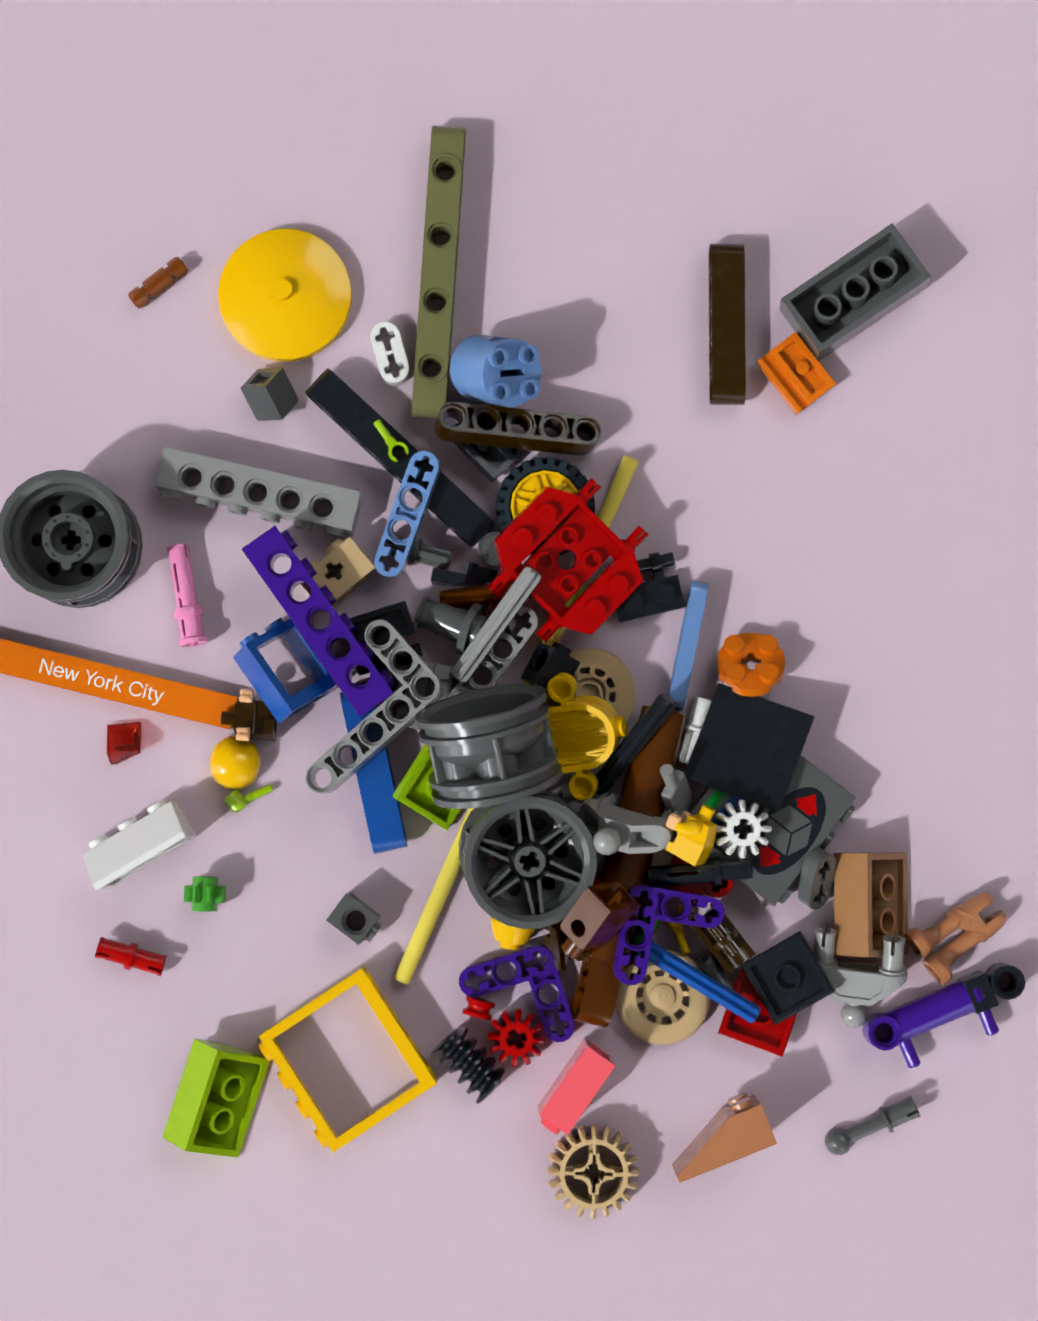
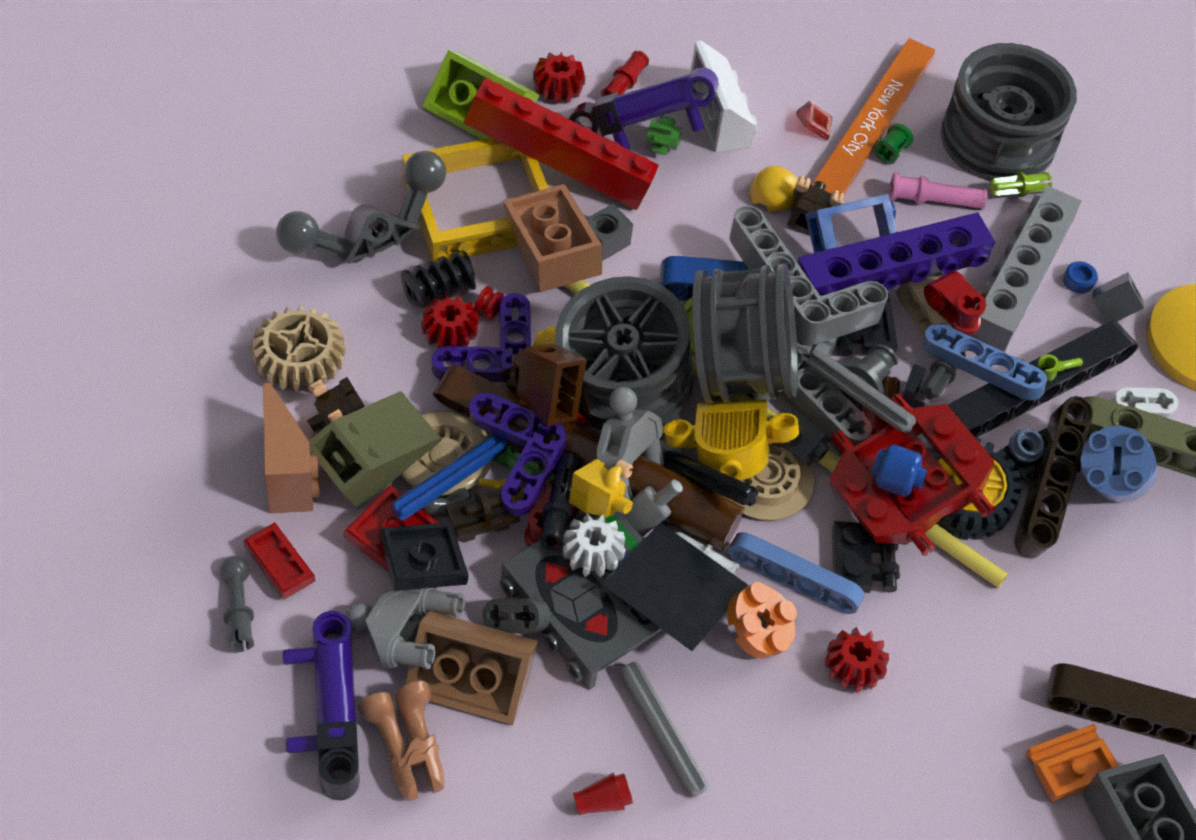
camera: 100 degrees right, 30 degrees down
(133, 653) = (896, 140): none -> green bush
(146, 512) = (1019, 184): none -> lime axle
(146, 1030) = (559, 77): none -> red gear
(205, 949) = (616, 111): none -> dark purple piece
(238, 802) = (739, 182): lime hand -> none
(247, 434) = (1080, 277): none -> blue tile
(273, 994) = (561, 143): none -> red brick
(347, 558) = (956, 298): none -> red piece
(393, 968) = (554, 237): none -> nougat slope
(427, 1151) = (300, 233): none -> dark grey piece
(496, 451) = (1032, 440): none -> sand blue plate
(575, 1087) = (387, 345): coral brick -> none
(583, 572) = (898, 470): none -> blue head
(649, 1109) = (333, 403): none -> dark brown piece
(691, 1061) = (373, 446): none -> olive slope
(749, 565) = (856, 660): none -> red gear
(821, 1105) = (279, 560): none -> red plate
(872, 724) = (664, 729): none -> light grey axle
(951, 758) = (604, 795): none -> red cone

